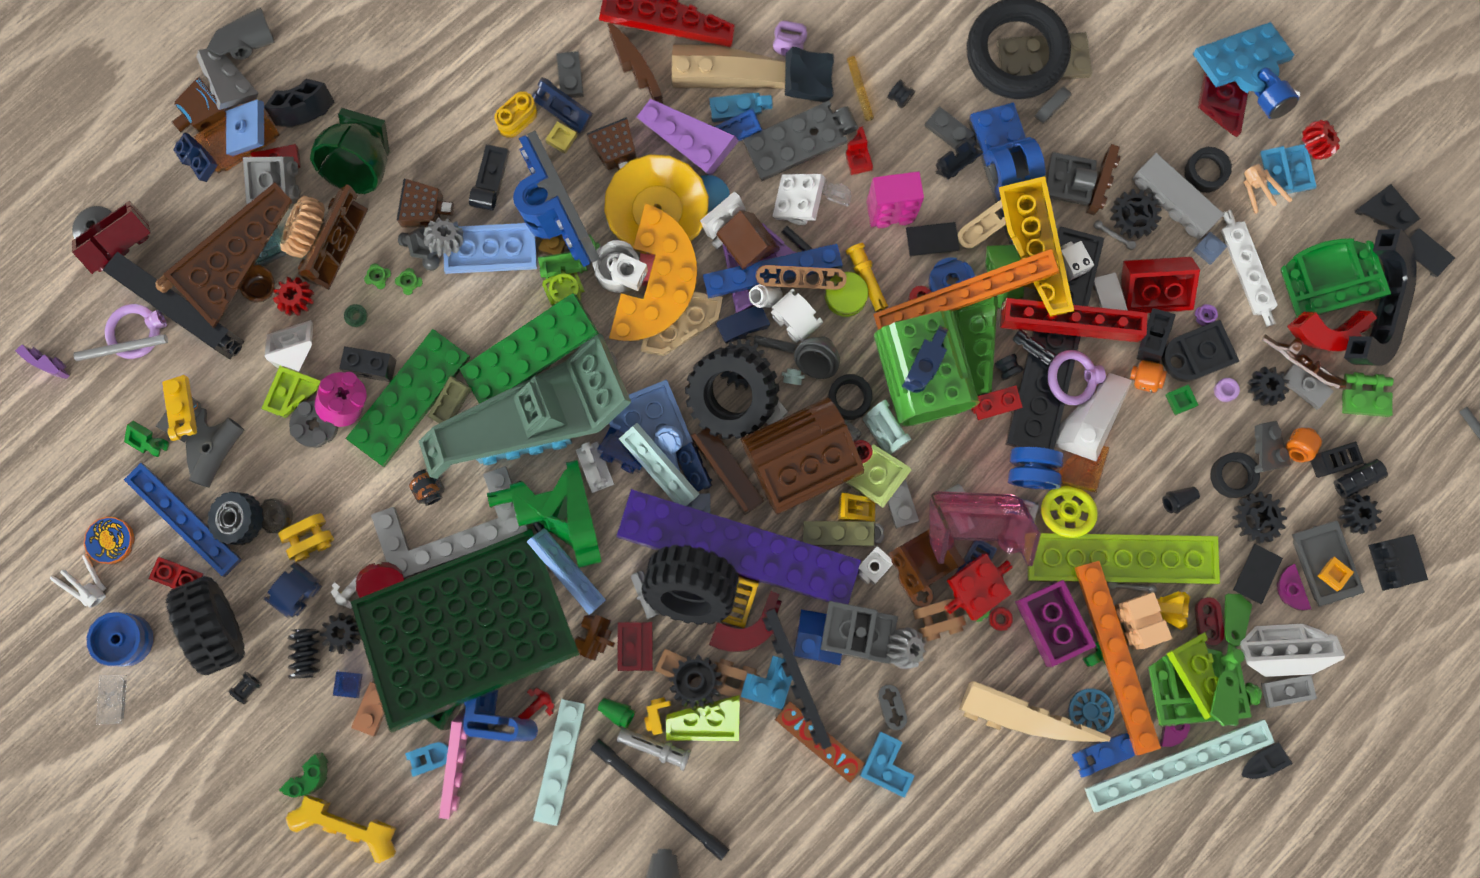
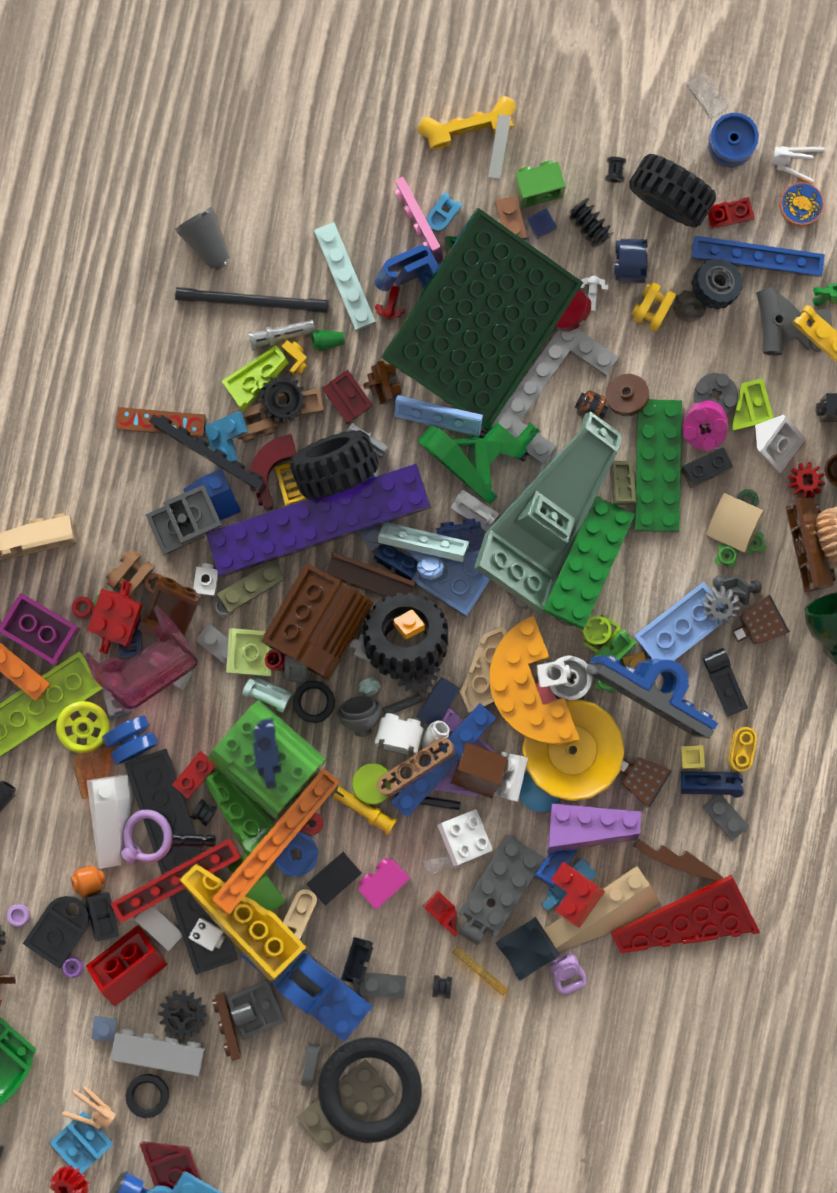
camera: 150 degrees right, 5 degrees up
(312, 780) = (518, 132): green cylinder -> none
(320, 720) = (539, 184): none -> bright green brick
(331, 784) = (499, 146): none -> white sticker
(336, 642) = (568, 250): black gear -> none
(380, 301) = (734, 523): none -> tan slope
(397, 468) = (627, 404): none -> reddish brown plate
(723, 393) = (409, 624): none -> light orange plate
(733, 82) = (581, 894): none -> red brick
(856, 508) = (249, 615): yellow slope -> none
(880, 766) = (102, 433): dark azure plate -> none
(897, 704) = (126, 480): dark grey beam -> none
(906, 648) = (140, 533): light grey gear -> none
(1129, 244) = (170, 987): light grey hinge -> none
(1181, 400) = (49, 880): green plate -> none
(1249, 268) = (62, 1032): white plate -> none

